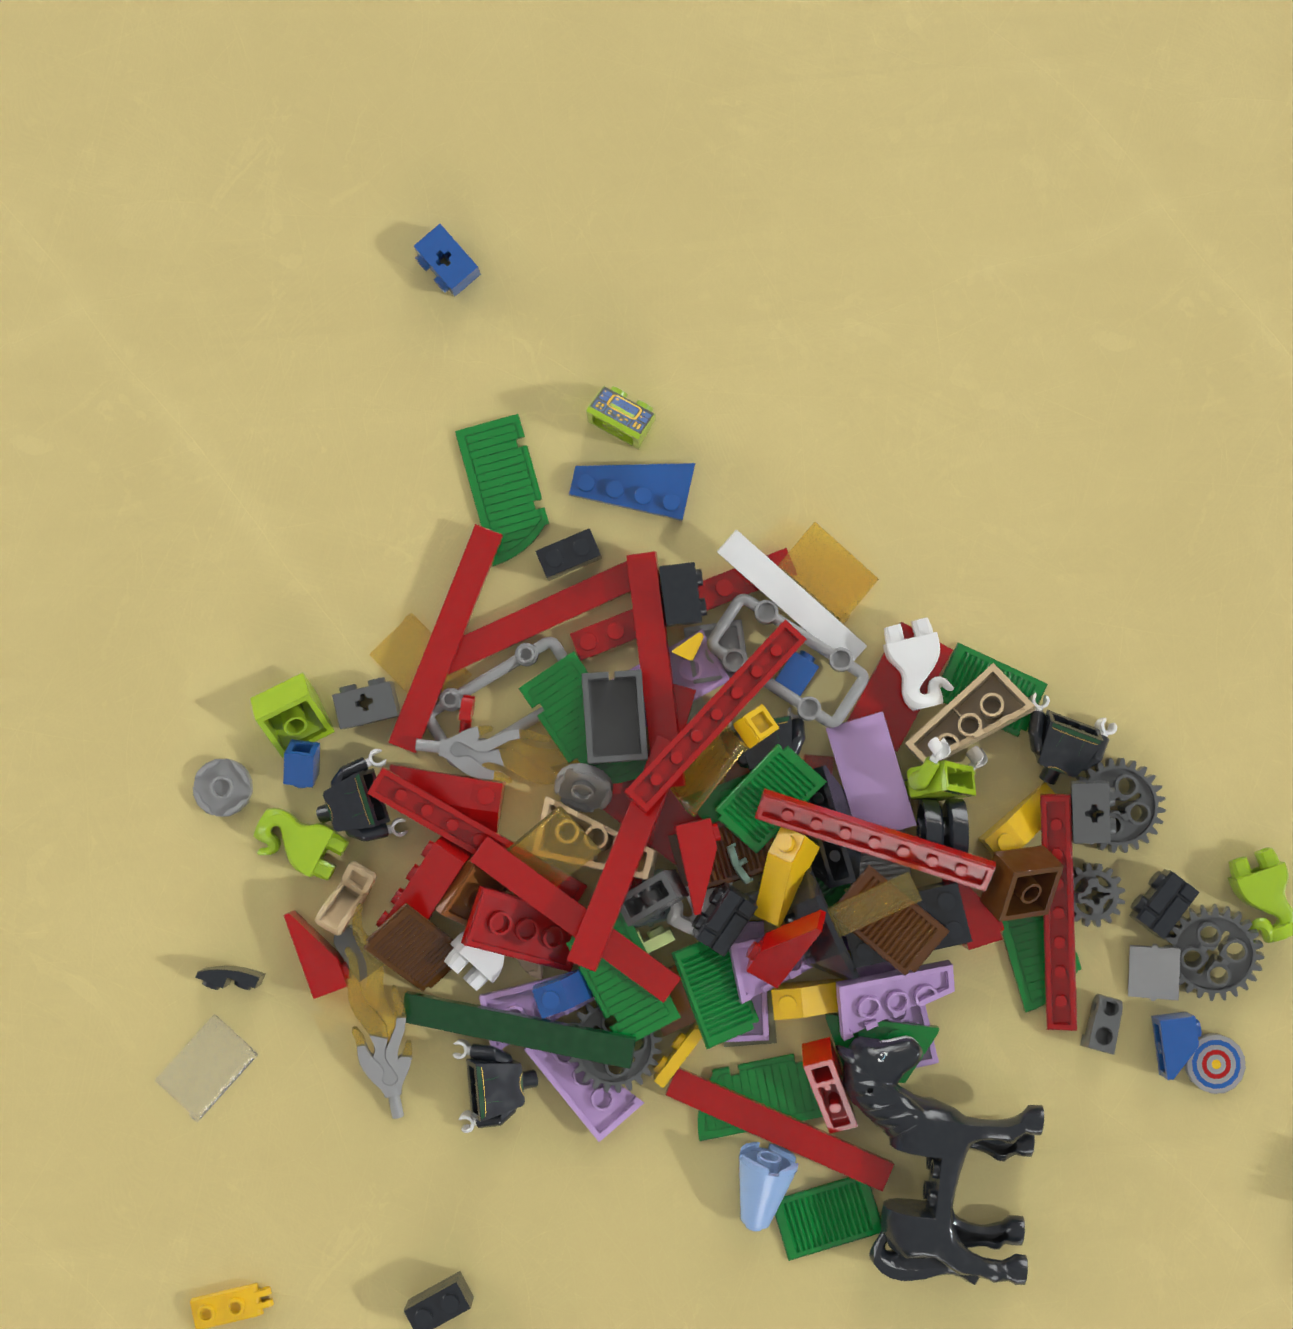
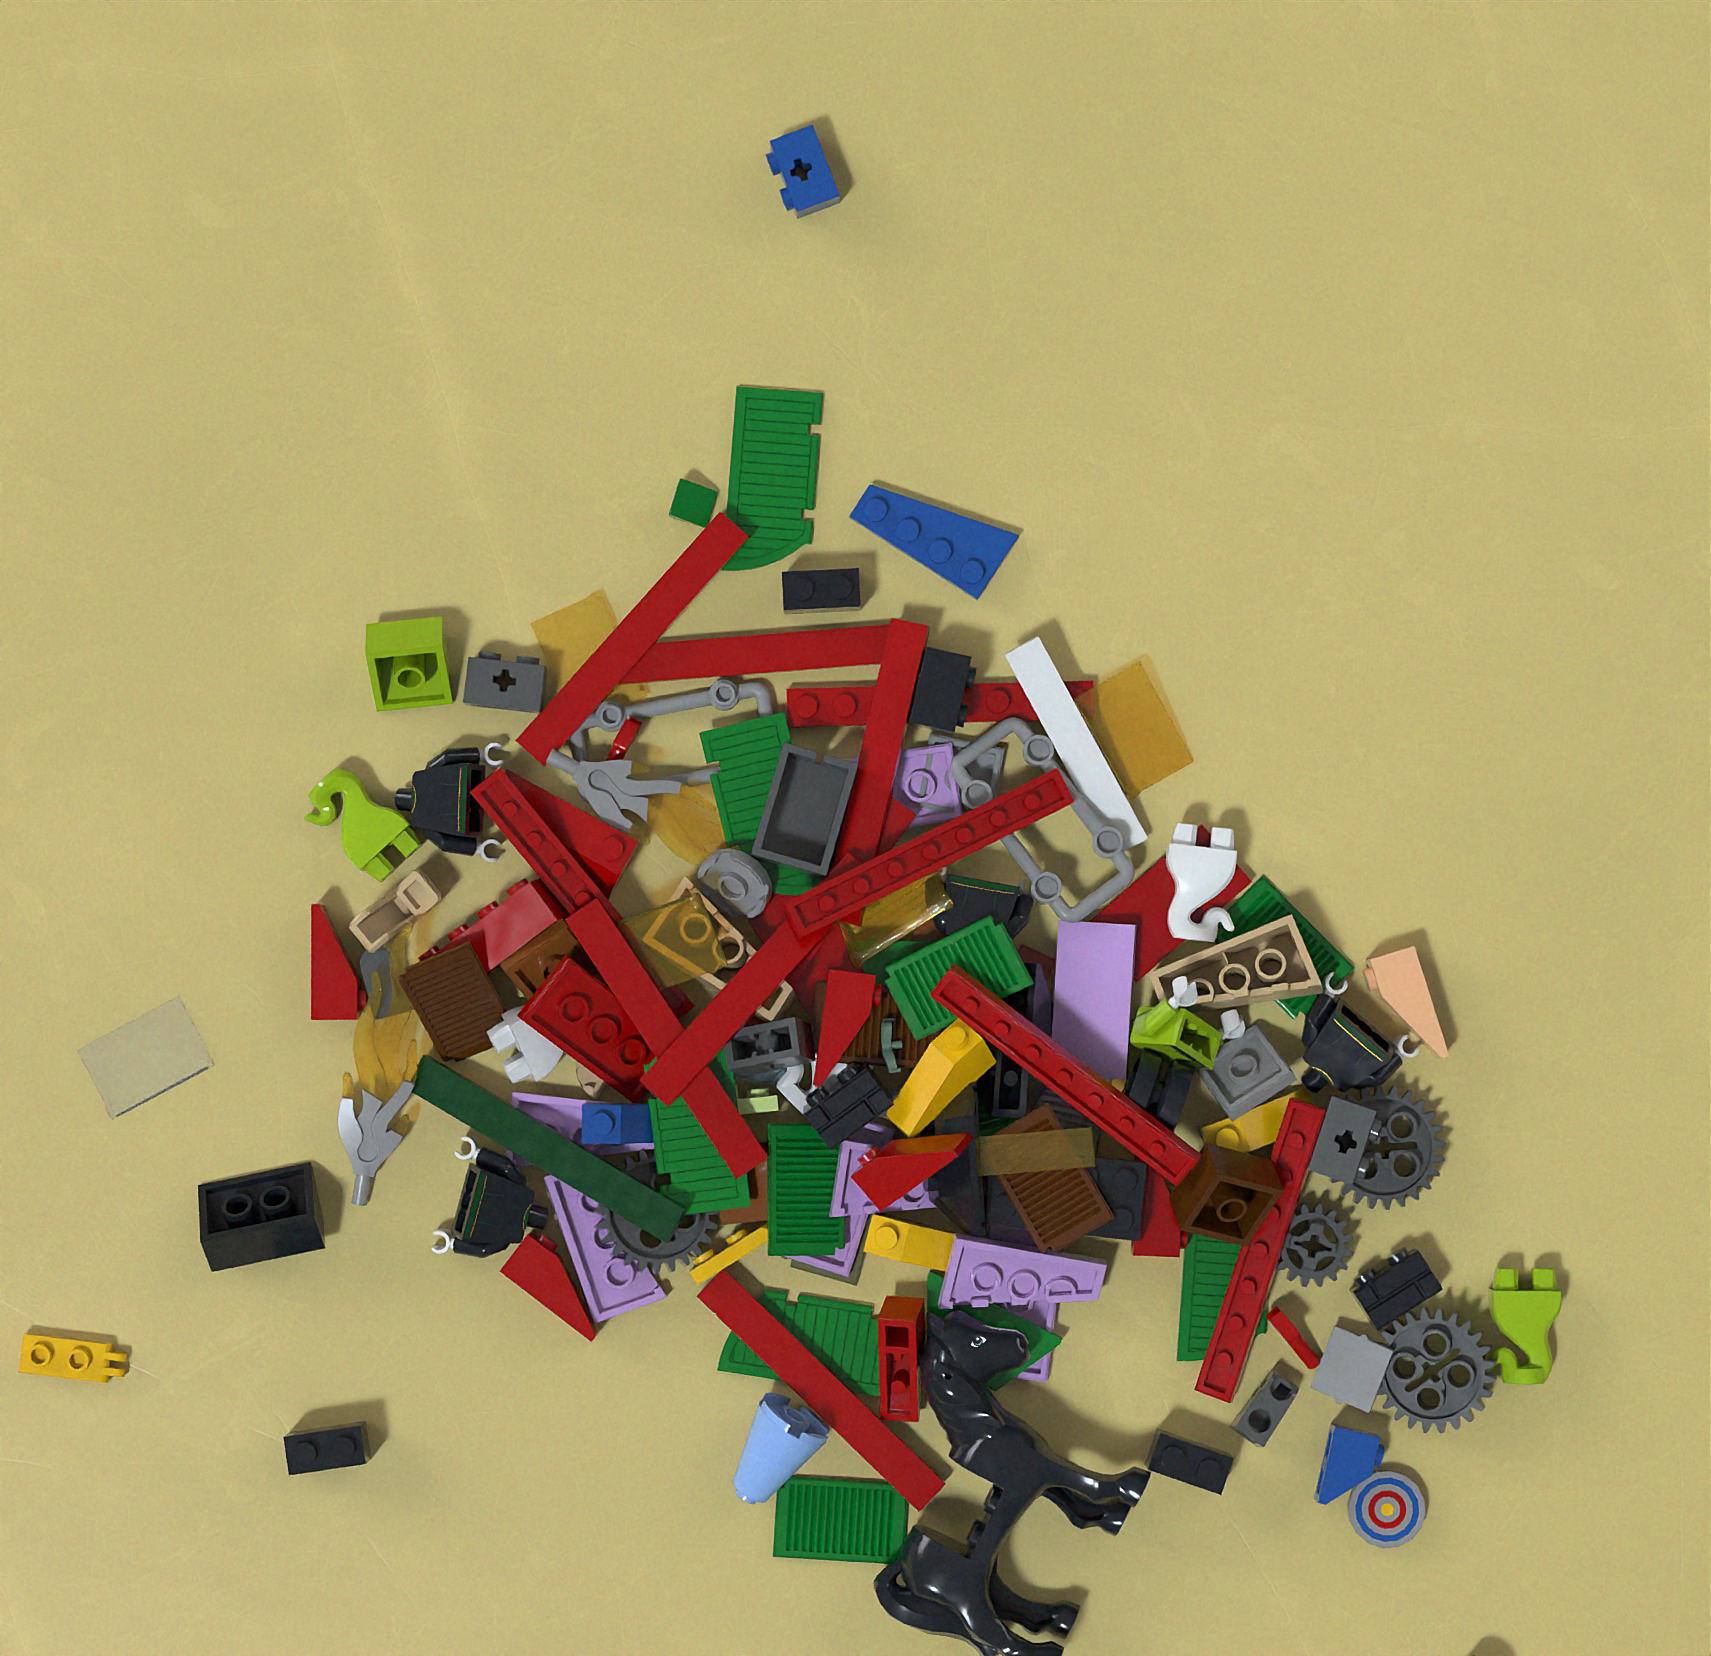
camera: 20 degrees right, 0 degrees up
(221, 976) = (205, 951): black slope -> none
(222, 787) = (290, 721): light grey tile -> none
(301, 763) = (399, 727): blue brick -> none
(329, 1154) = (260, 1217): none -> black slope
(453, 526) = (692, 503): none -> green slope
(551, 1121) = (545, 1277): none -> red slope
(621, 416) = (948, 444): slope -> none
(689, 648) = (927, 760): yellow slope -> none
(755, 726) = (972, 884): yellow slope -> none
(797, 672) = (1049, 838): blue brick -> none
(1001, 788) = (1246, 1073): none -> light grey tile
(1062, 1083) = (1189, 1461): none -> black brick
(1089, 686) = (1403, 989): none -> light nougat slope
(1103, 965) = (1293, 1338): none -> red bar

